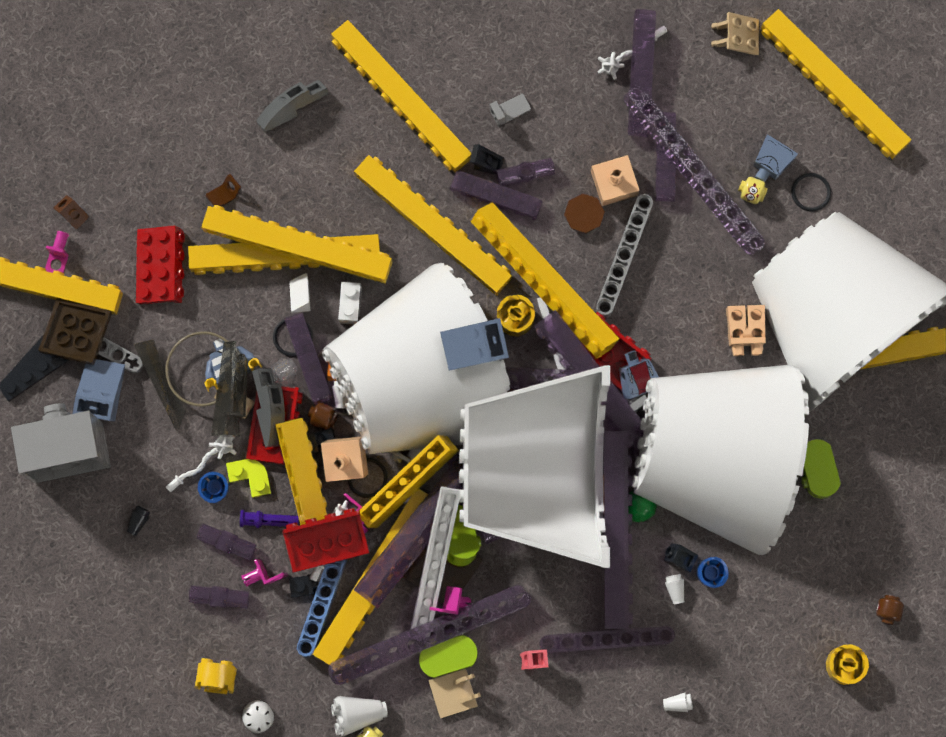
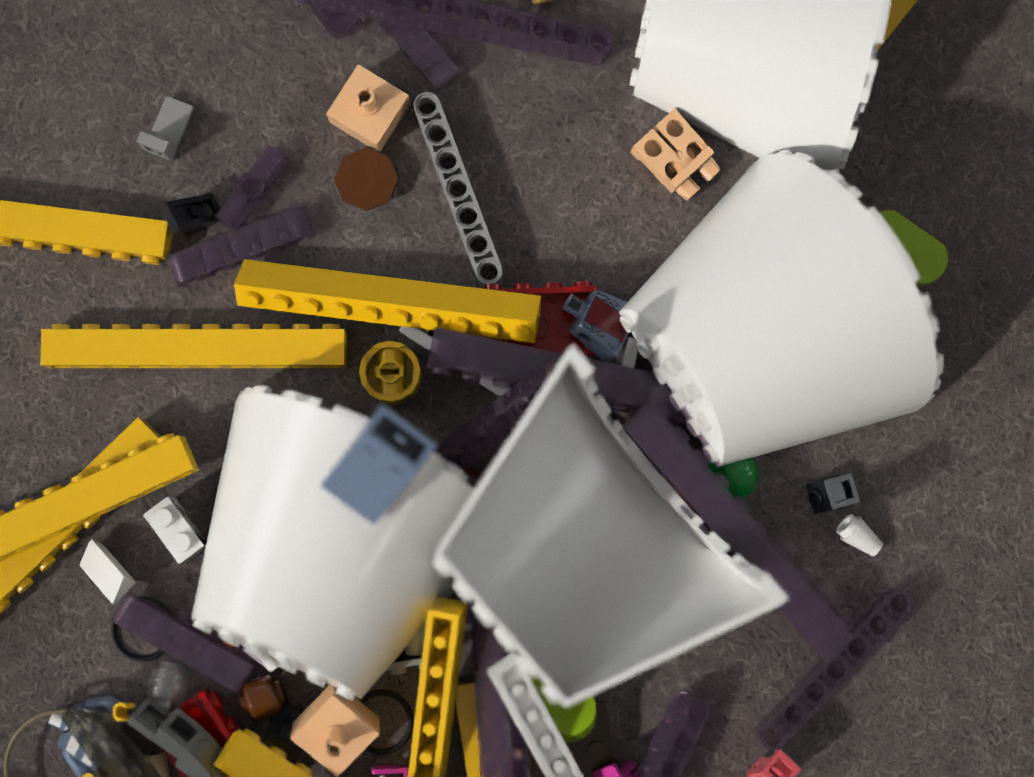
camera: 45 degrees left, 5 degrees up
(679, 703) = (980, 668): white cone -> none
(711, 572) = (883, 480): blue helmet -> none

